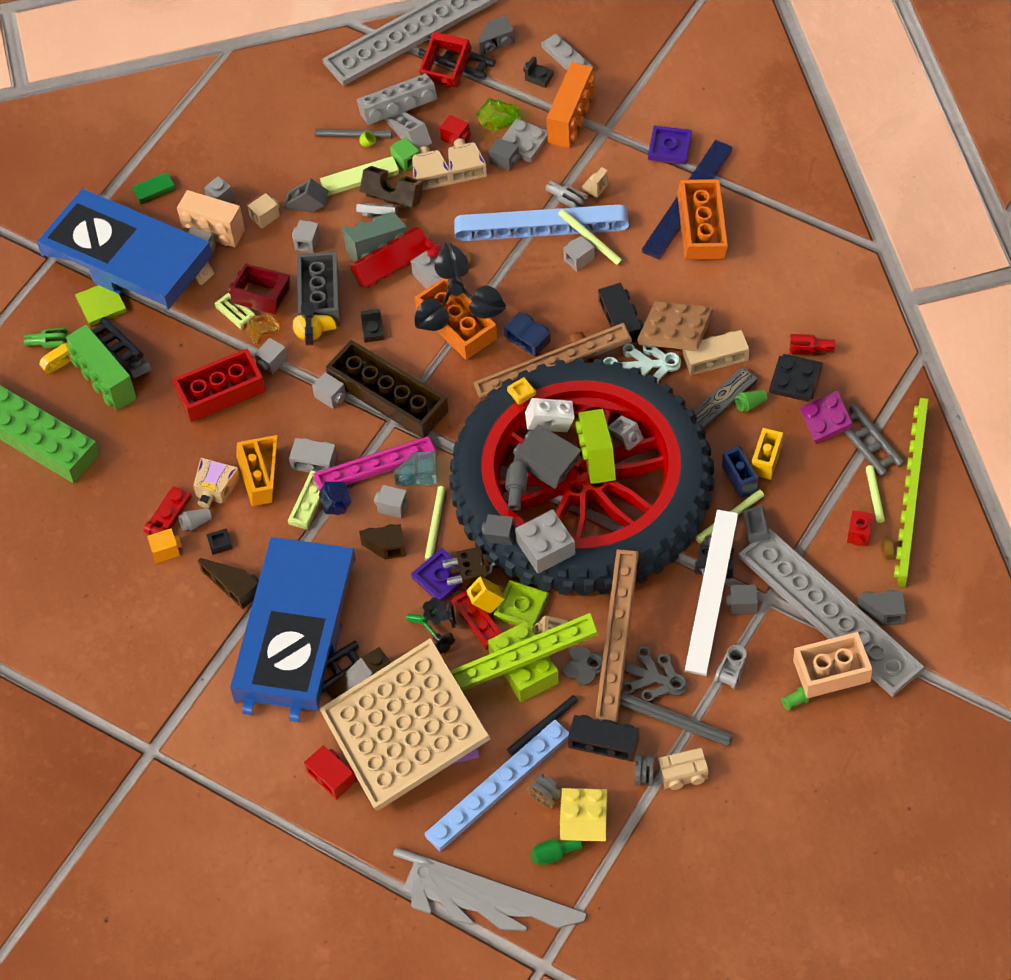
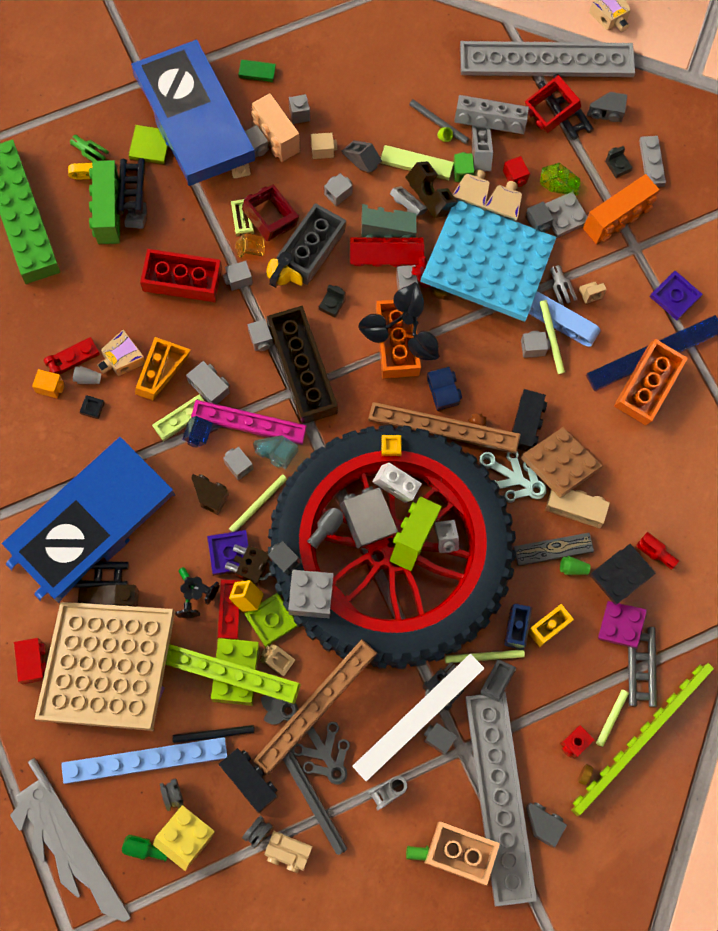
camera: 25 degrees right, 15 degrees up
(232, 581) = (75, 452): dark brown slope -> none
(488, 208) = (489, 260): none -> medium azure plate

